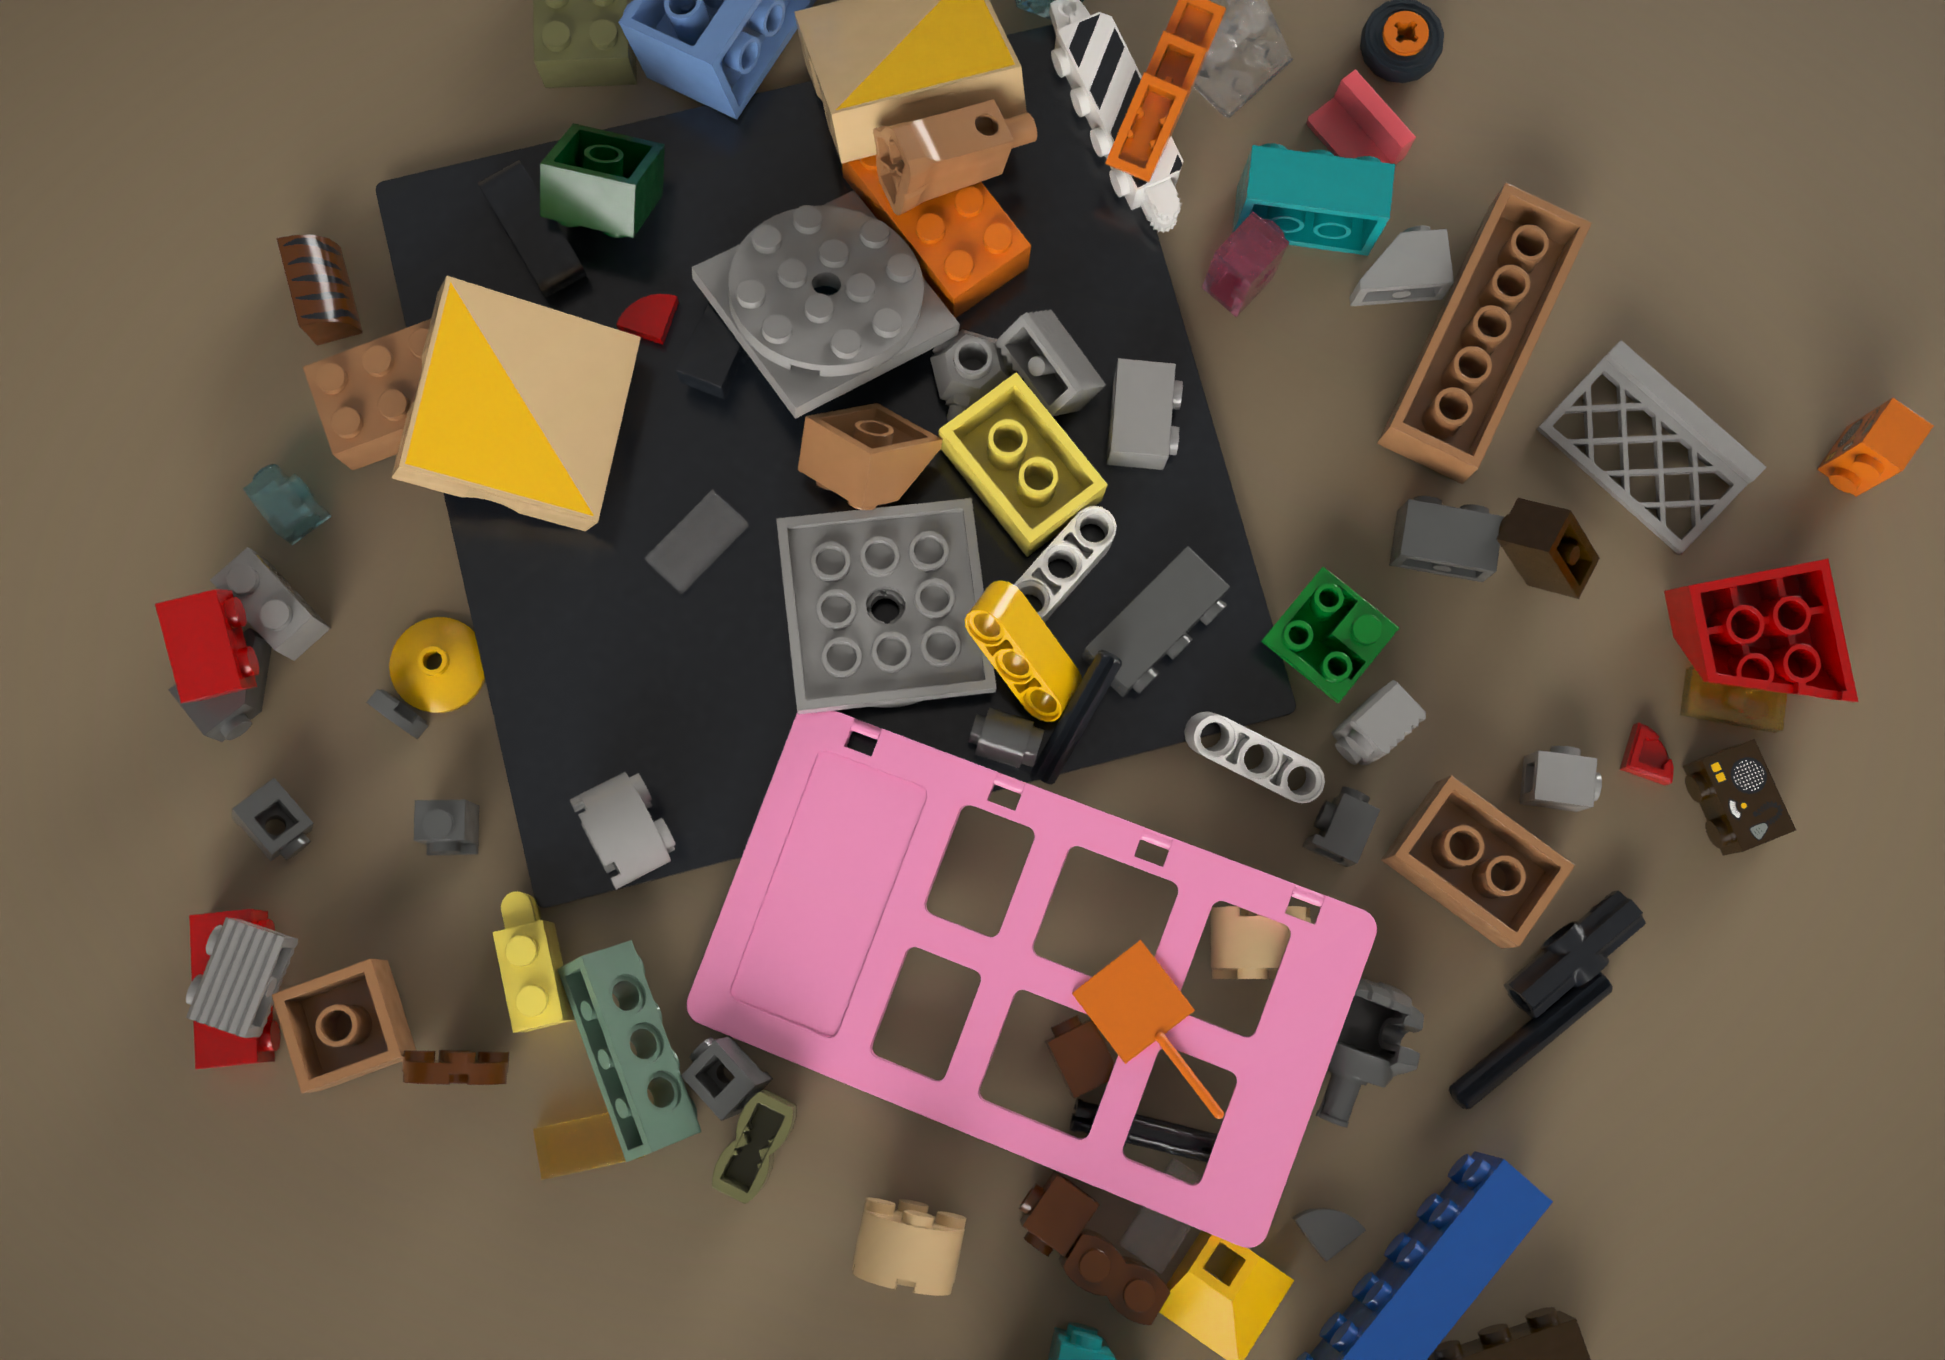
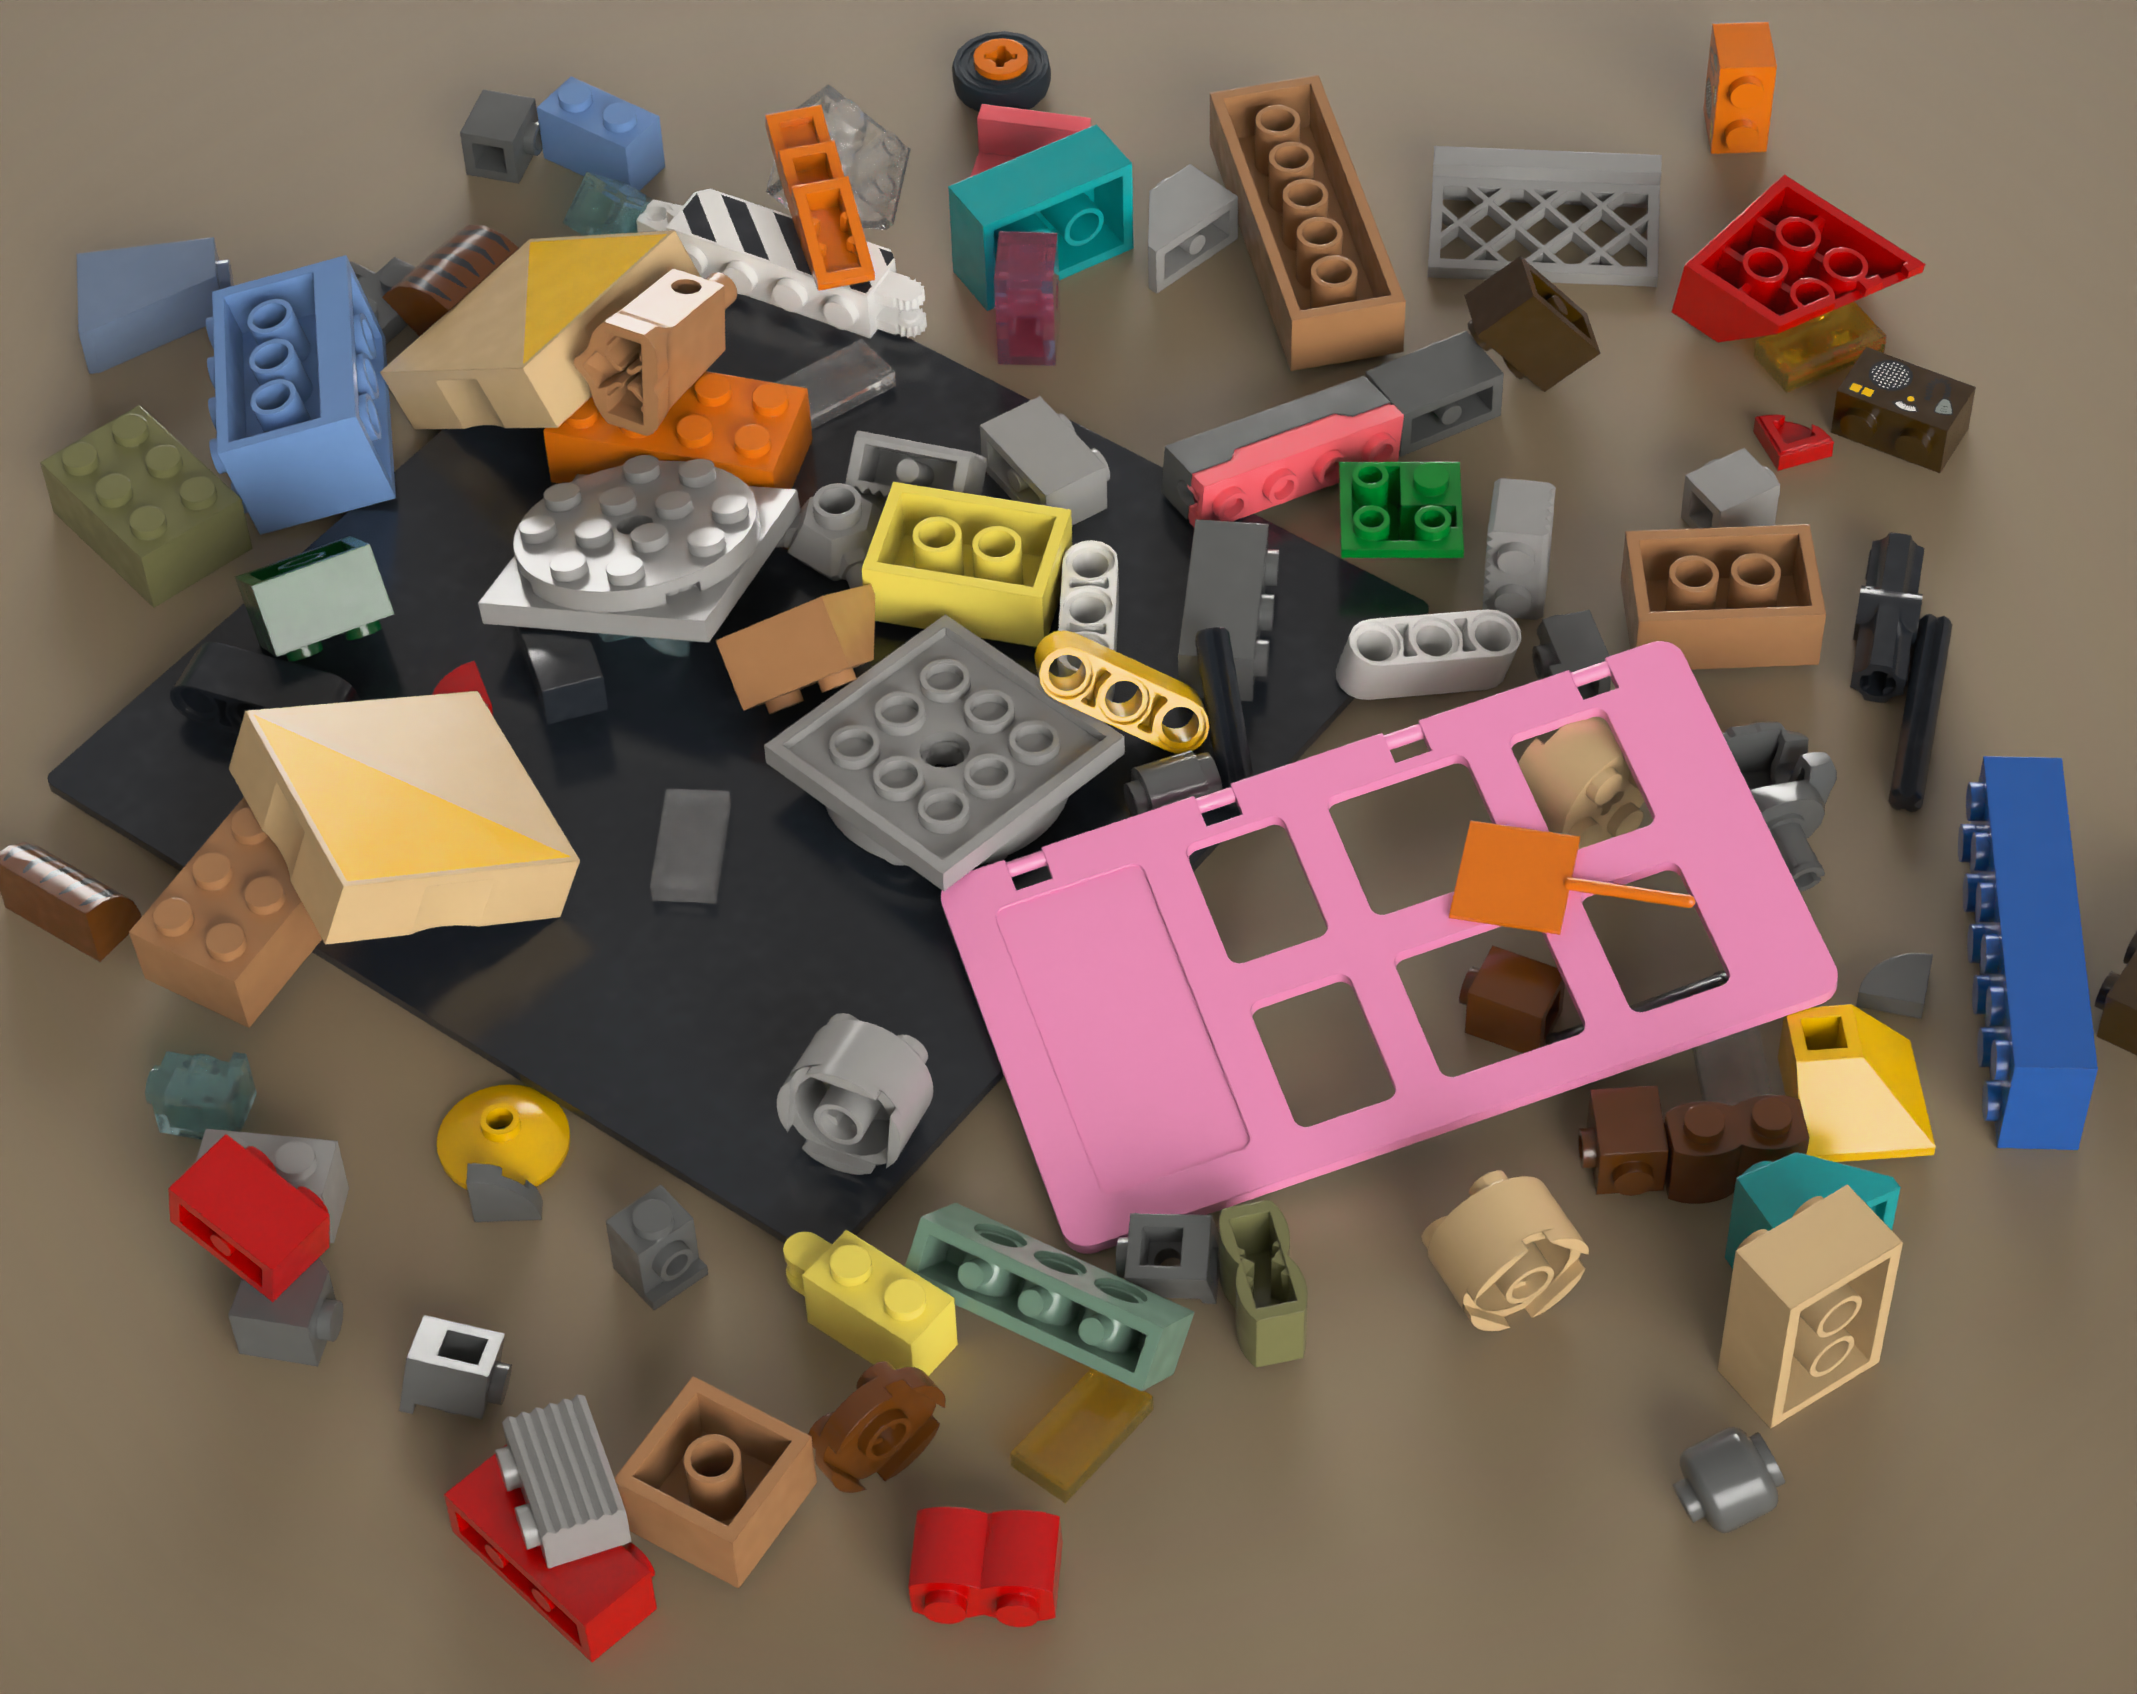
camera: 30 degrees left, 30 degrees down
(453, 1199) = (985, 1565): none -> red brick
(1071, 234) = (843, 381): none -> clear tile
(1302, 521) = (1280, 452): none -> coral piece

